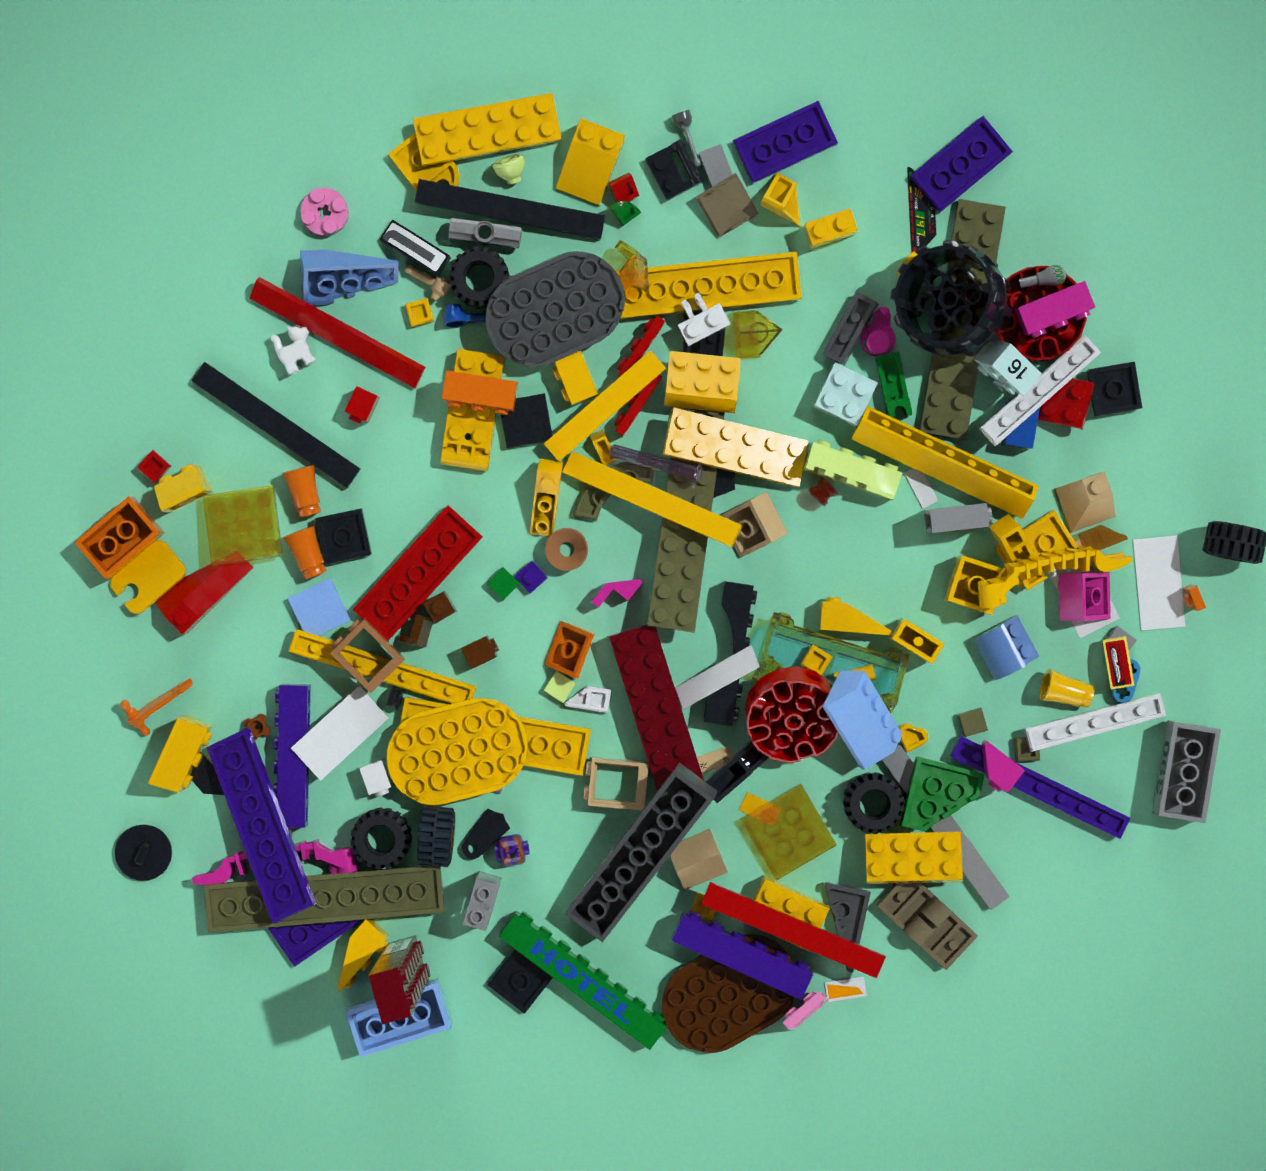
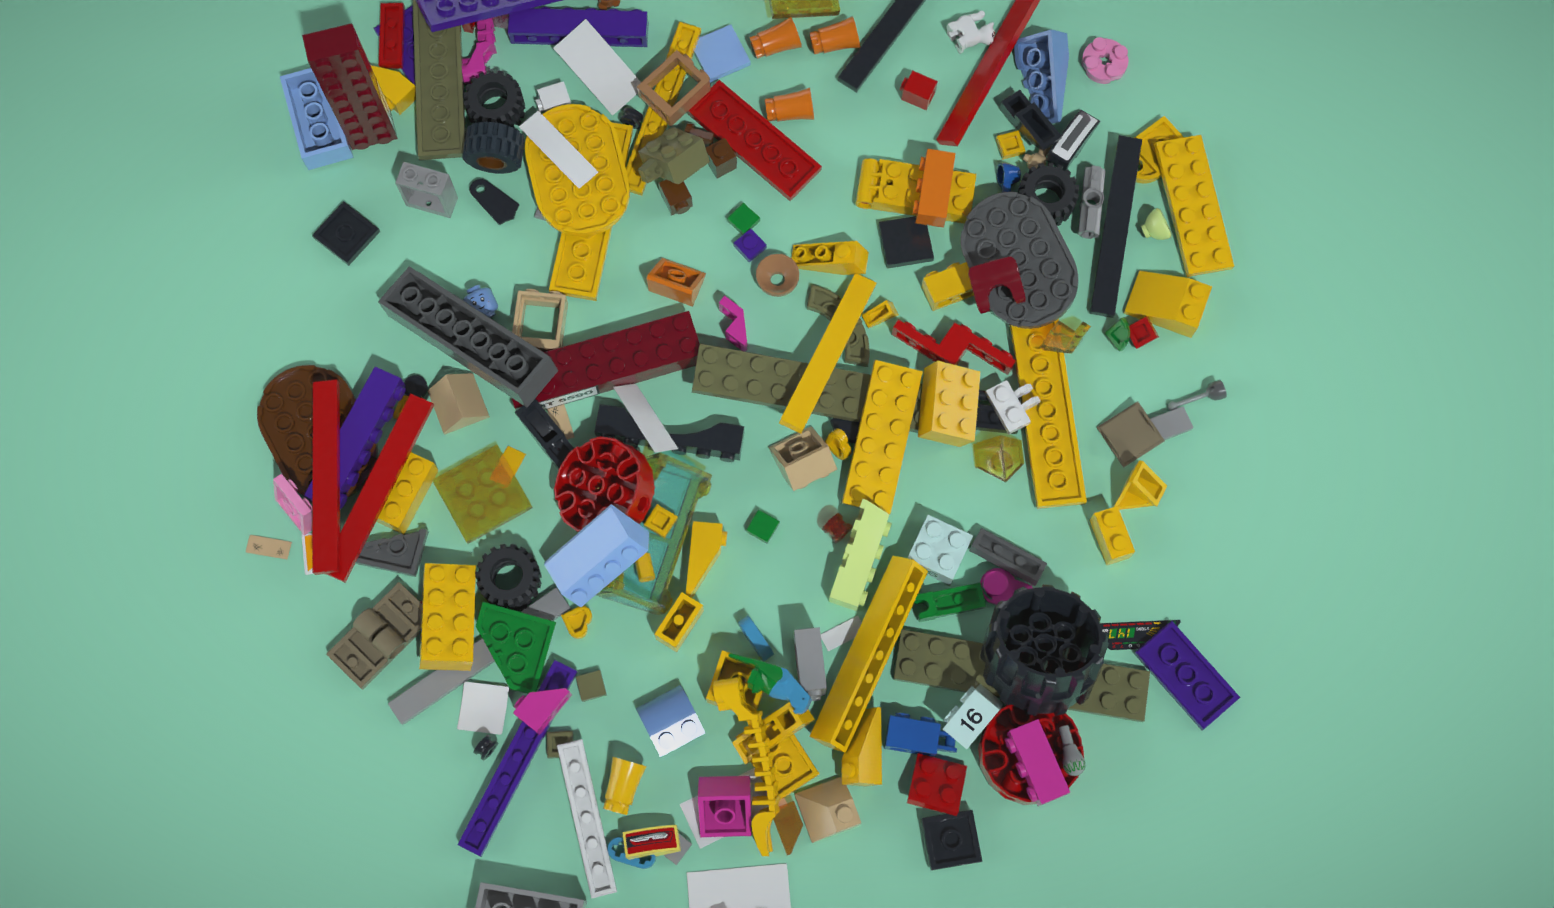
camera: 85 degrees right, 15 degrees down
(305, 947) = (391, 35): none -> red tile
(343, 536) = (790, 72): black plate -> none
(382, 536) = (790, 106): none -> orange plant
(399, 291) = (1029, 120): none -> black slope
(437, 771) = (558, 149): none -> white sticker
(445, 656) = (672, 156): none -> olive hinge
(511, 850) = (476, 223): dark purple head -> none
(560, 686) = (638, 271): yellowish green tile -> none
(575, 335) = (993, 274): none -> dark red piece
(583, 980) = (341, 290): green brick -> none
(591, 699) = (626, 302): white tile -> none
(597, 842) = (482, 300): none -> medium blue head
(605, 405) = (923, 310): yellow tile -> none
(656, 462) = (859, 379): clear purple axle -> none
(667, 174) = (1160, 376): black plate -> none
(680, 902) = (416, 385): none -> black piece
(740, 489) = (838, 444): none -> yellow tile
(784, 979) = (326, 478): none -> red tile
(785, 142) = (1199, 493): dark purple tile -> none
(819, 562) = (763, 526): none -> green tile
(840, 1032) = (268, 547): none -> tan sticker
(929, 569) = (755, 638): none -> dark azure beam
(983, 549) = (776, 683): none -> animal
(993, 821) = (483, 708): none -> white sticker
(1031, 817) = (485, 747): none -> black bush
(1043, 389) = (948, 753): white tile -> none
(1044, 469) = (864, 755): none -> yellow slope

